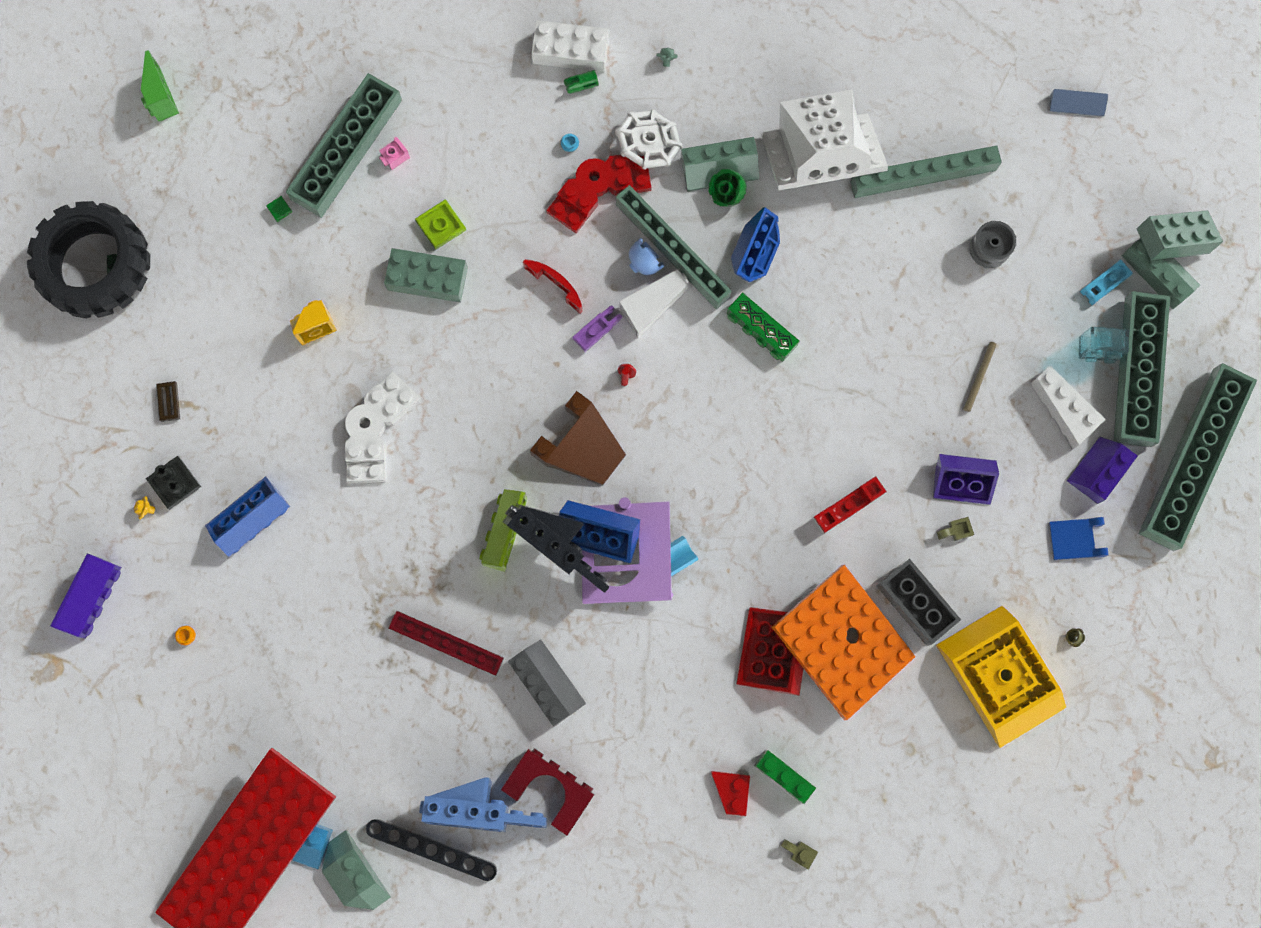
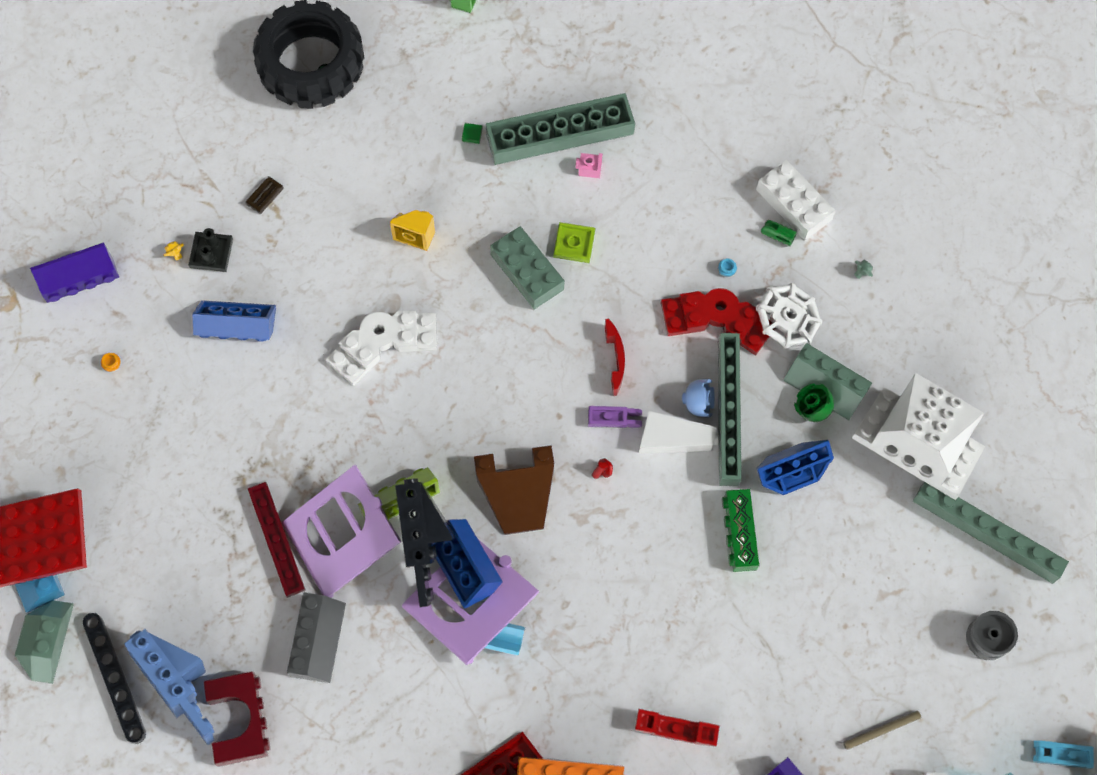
camera: 45 degrees right, 10 degrees down
(521, 592) = (368, 546): none -> lavender door

